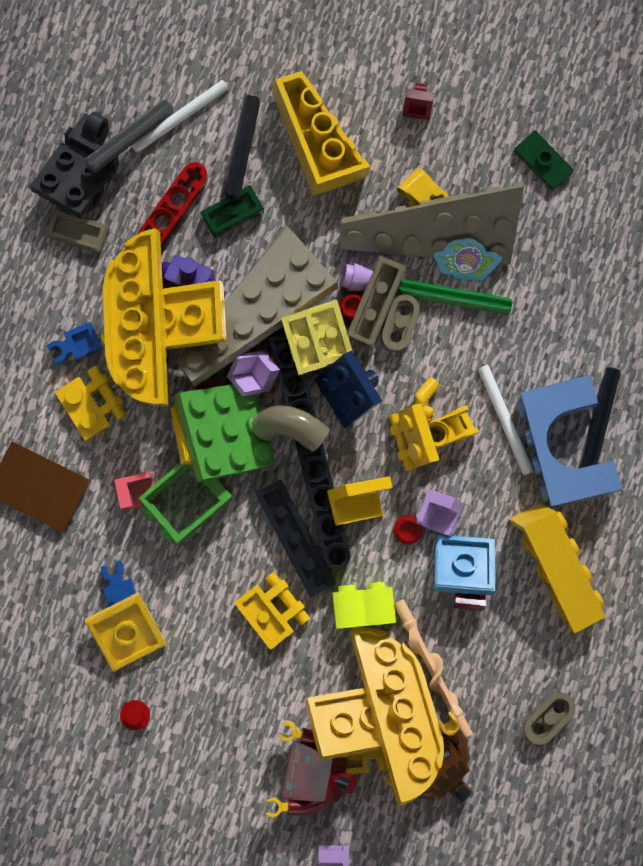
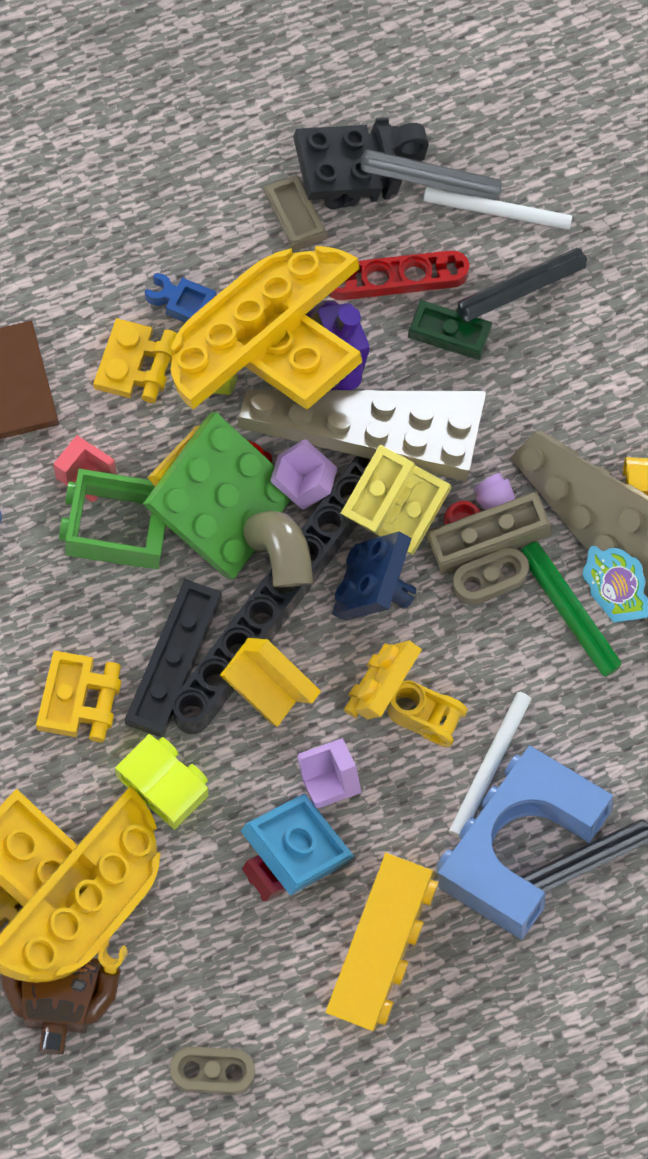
camera: 50 degrees right, 15 degrees down
(320, 144) = (596, 352): yellow wedge -> none
(407, 530) = (282, 761): red plate -> none
(424, 394) = (433, 661): yellow arm -> none
(434, 664) = (166, 900): light nougat piece -> none

